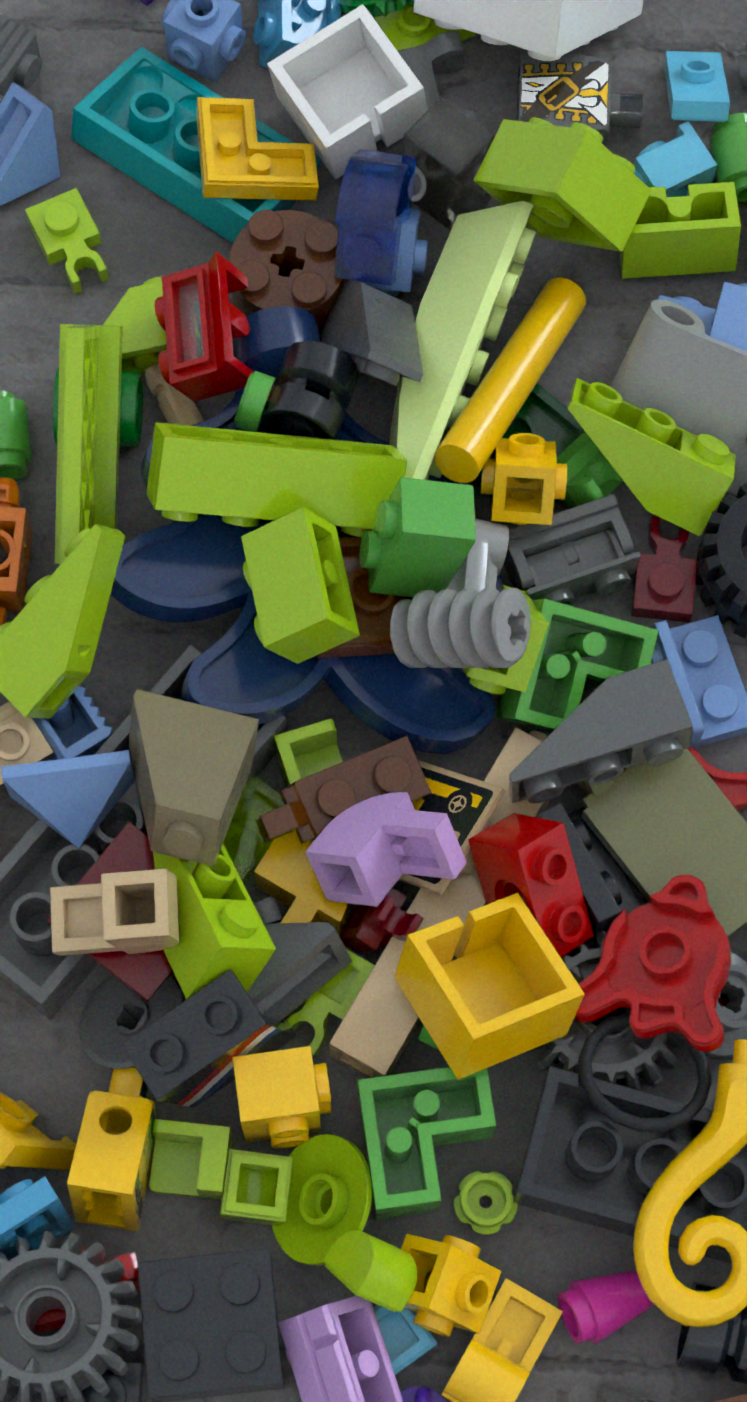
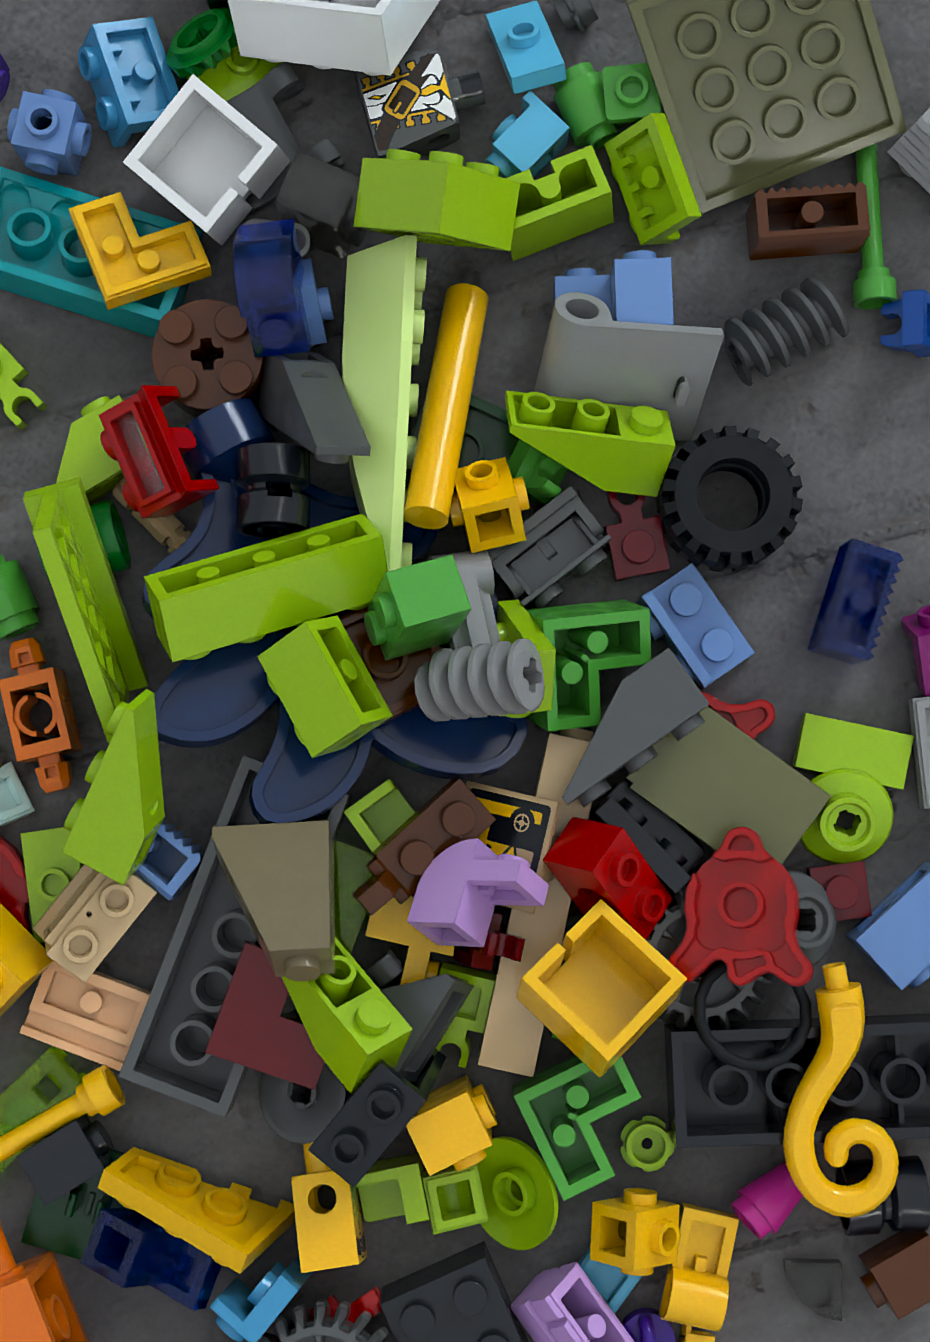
camera: 15 degrees left, 15 degrees up
(71, 792) = (186, 935): medium blue slope -> none
(121, 913) = (265, 1042): tan brick -> none
(254, 401) = (224, 512): bright green tile -> none
(373, 1269) = (576, 1250): lime brick -> none

